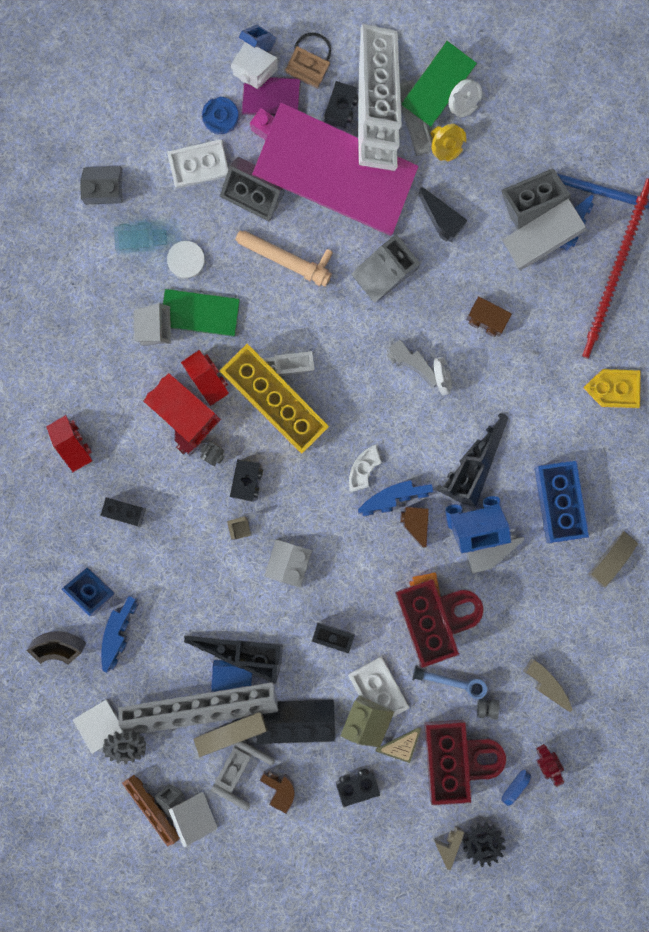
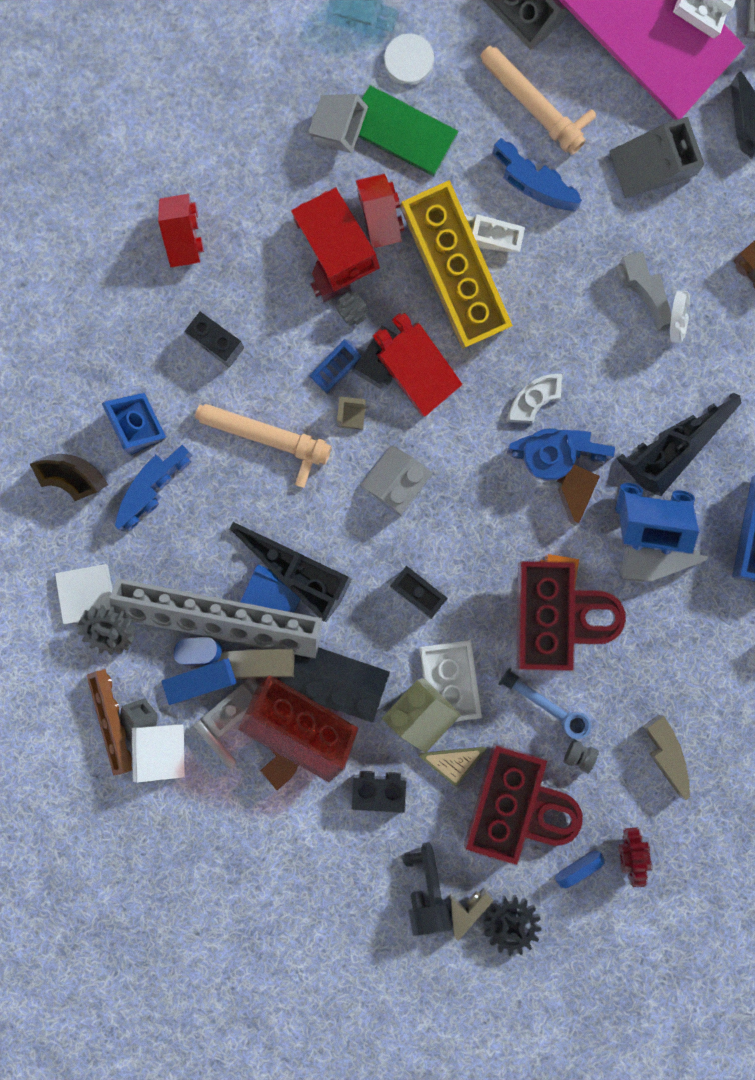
camera: 25 degrees right, 0 degrees up
(194, 737) = (197, 651): none -> tile
(203, 758) = (199, 681): none -> blue tile
(214, 564) = (300, 445): none -> light nougat cylinder
(217, 480) = (350, 365): none -> blue slope
(272, 478) = (416, 365): none -> red tile
(285, 766) = (299, 729): none -> clear red brick
(314, 316) = (541, 186): none -> blue slope
(388, 507) = (549, 454): none -> blue tile
(428, 859) = (436, 916): none -> black piece

